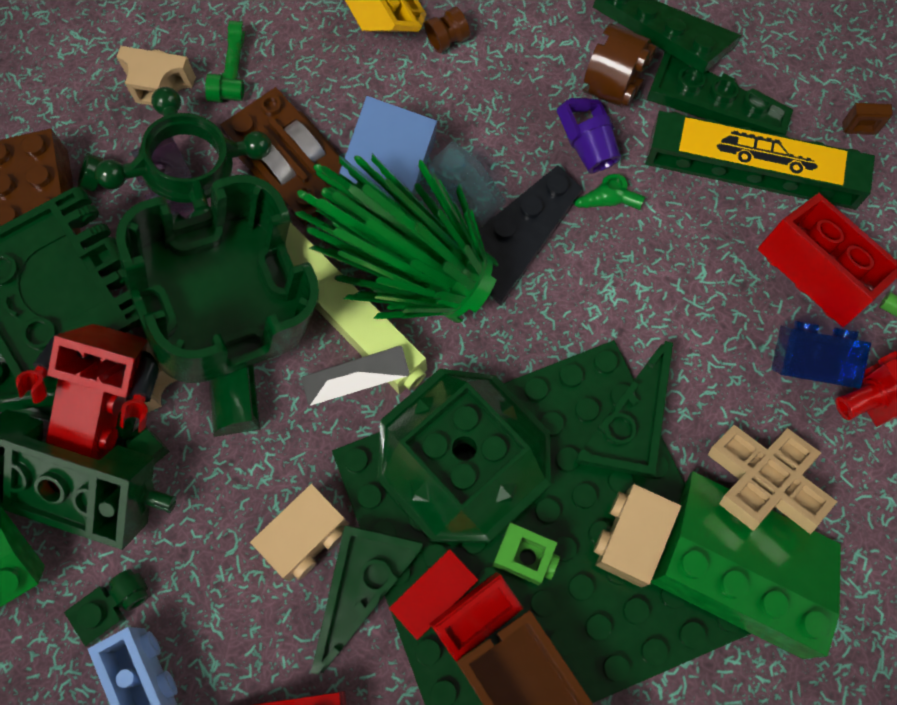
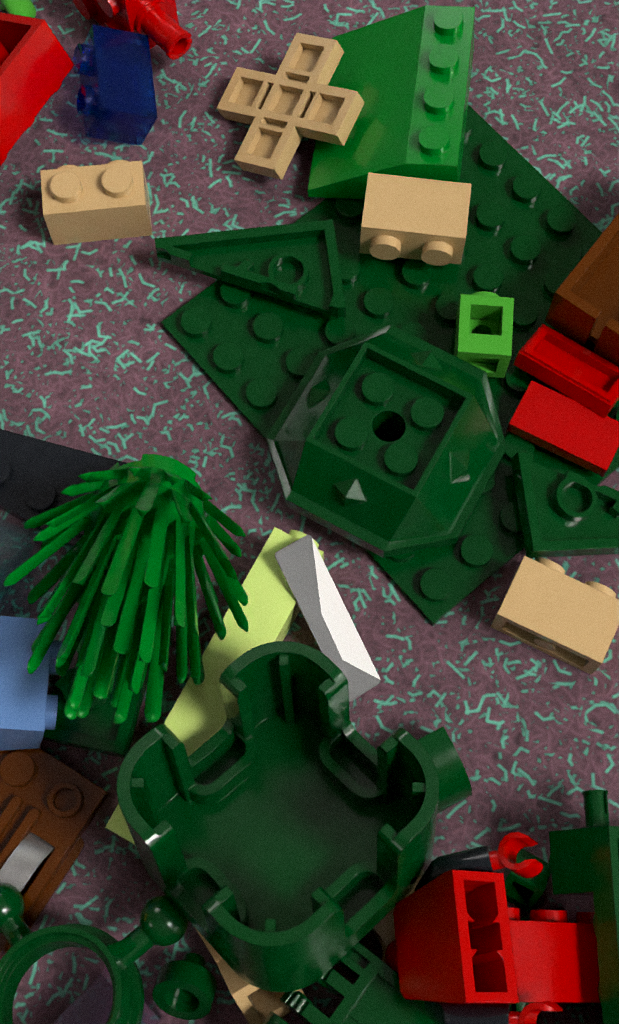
camera: 110 degrees left, 0 degrees up
(720, 317) = (96, 202): none -> tan brick

